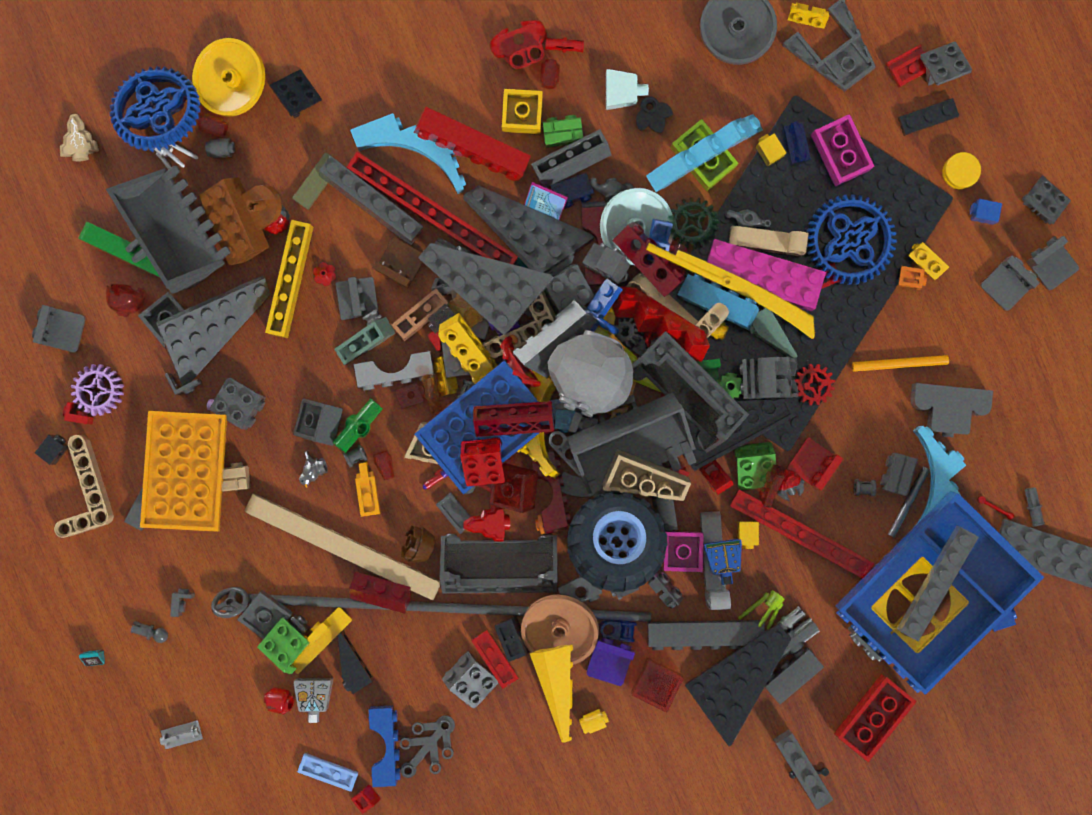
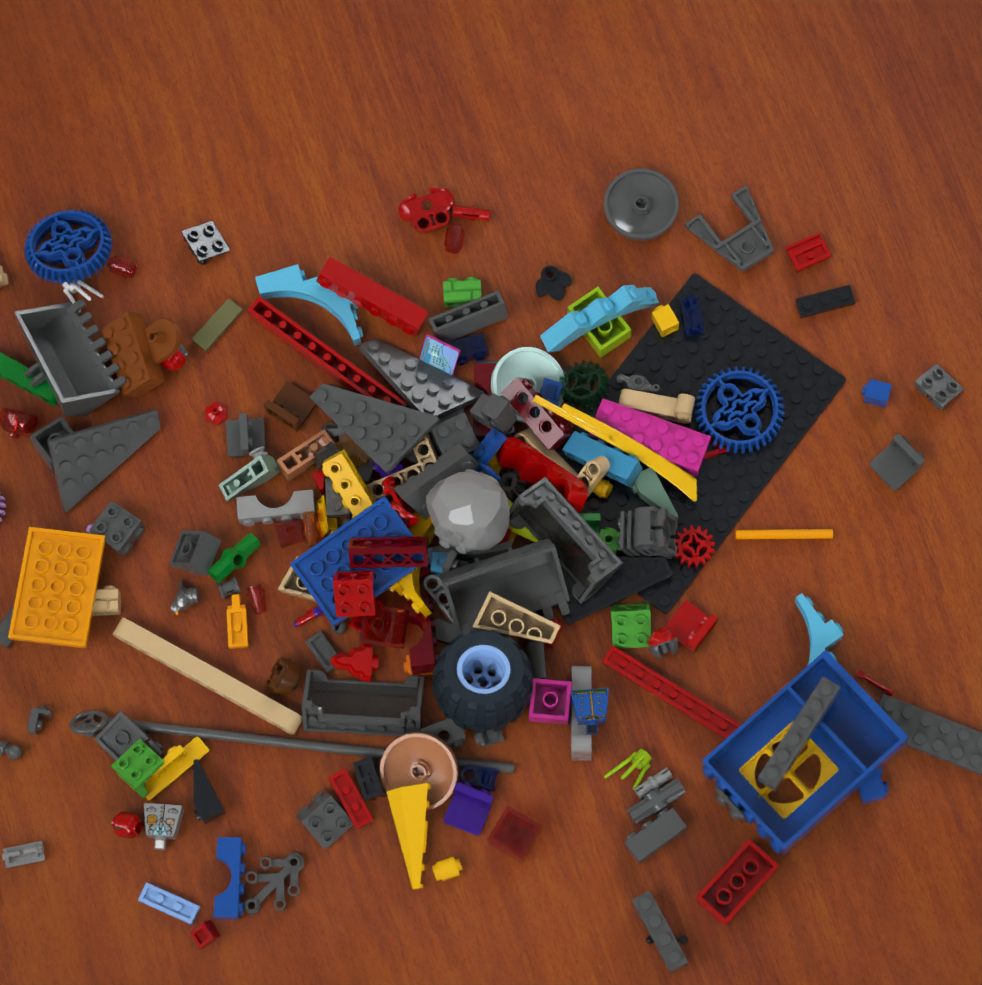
camera: 10 degrees right, 15 degrees down
(186, 389) = (67, 512): dark grey bracket -> none
(220, 148) = (126, 288): dark grey brick -> none
(229, 77) = (142, 222): yellow dish -> none
(289, 279) = (181, 413): yellow brick -> none
(370, 200) = (268, 345): dark grey brick -> none
(380, 592) = (240, 721): dark red brick -> none
(522, 111) = (423, 270): yellow brick -> none
(610, 188) = (502, 348): dark grey piece -> none
(623, 89) = (524, 257): light aqua torso -> none
(672, 595) = (536, 745): dark grey hinge -> none
(702, 633) = (568, 787): dark grey brick -> none
(716, 477) = (589, 631): red slope -> none
(735, 683) = (594, 838): black wing -> none
(748, 533) = (618, 690): yellow brick -> none
(773, 481) = (646, 634): clear red plate -> none
(816, 17) = (717, 202): yellow hinge -> none
(842, 150) = (735, 324): dark pink brick -> none
(864, 487) = (740, 653): dark grey bush -> none
(898, 474) = (776, 641): dark grey brick -> none
(908, 502) = (786, 669): flat silver bar -> none
(912, 277) = (799, 451): orange bracket -> none
(928, 260) = (816, 435): yellow hinge -> none
(945, 64) = (841, 251): dark grey bracket -> none
(950, 406) = (832, 578): dark grey brick -> none
(961, 170) = (854, 353): yellow head -> none
(1034, 506) = (913, 684): dark grey axle -> none
(1053, 263) = (941, 445): dark grey bracket -> none

